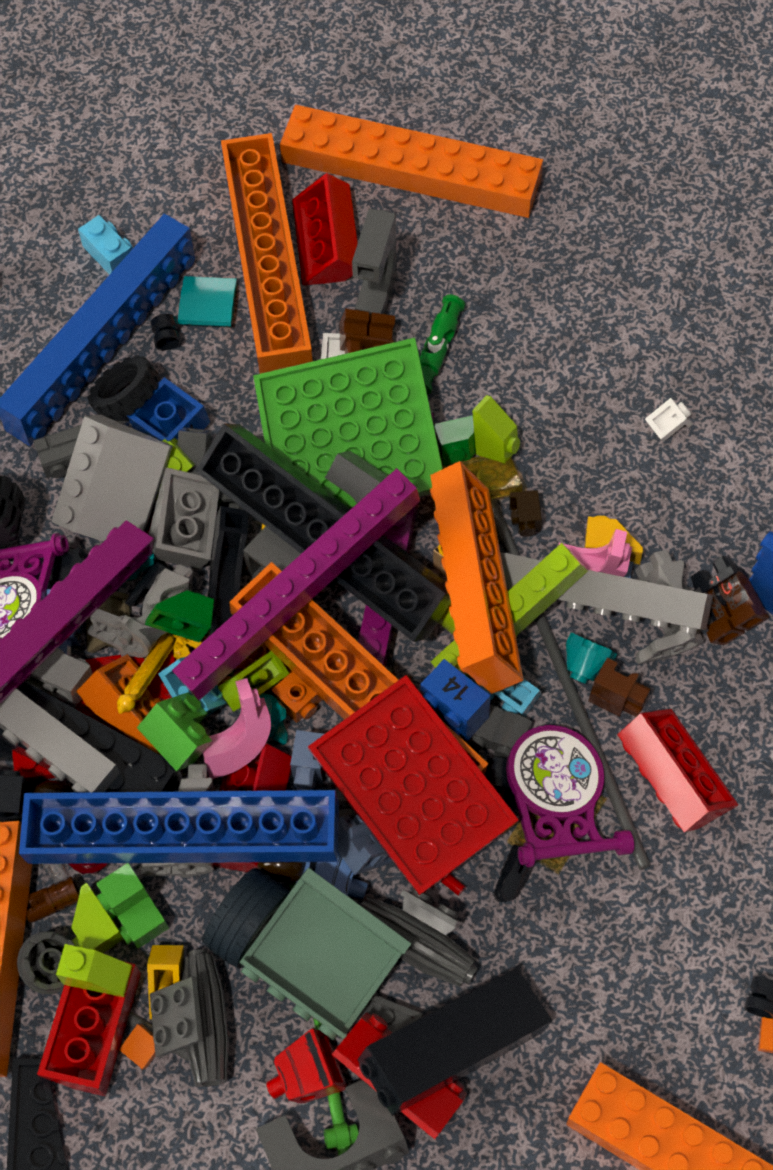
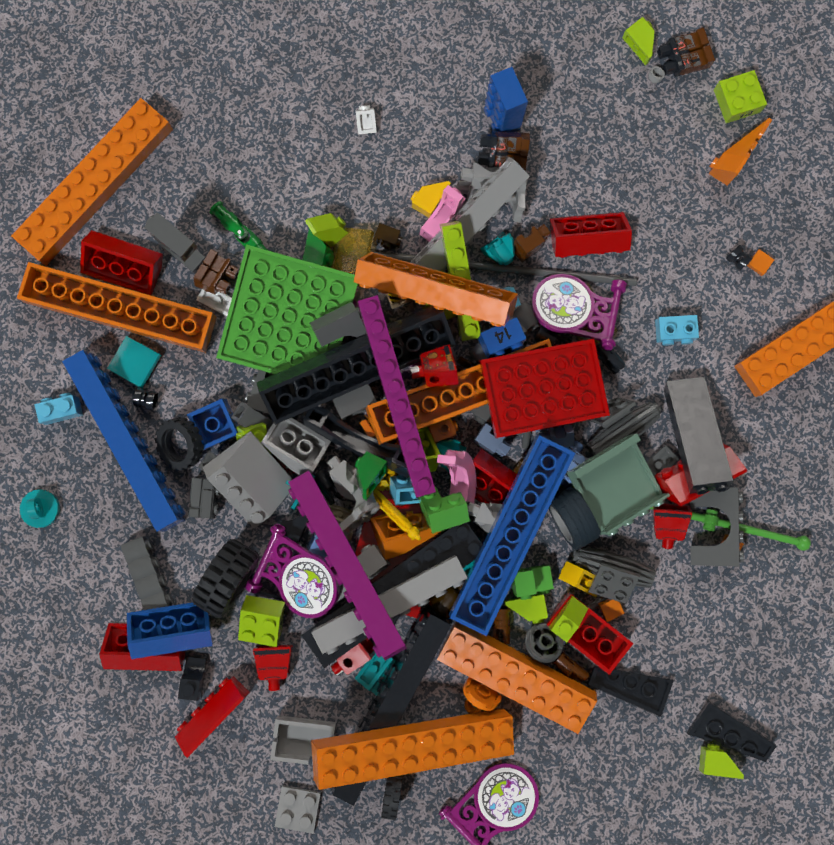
camera: 70 degrees left, 20 degrees up
(29, 1023) = (571, 667): none -> reddish brown hinge
(368, 627) = (437, 367): none -> red torso
(604, 952) = (676, 329): none -> medium azure brick

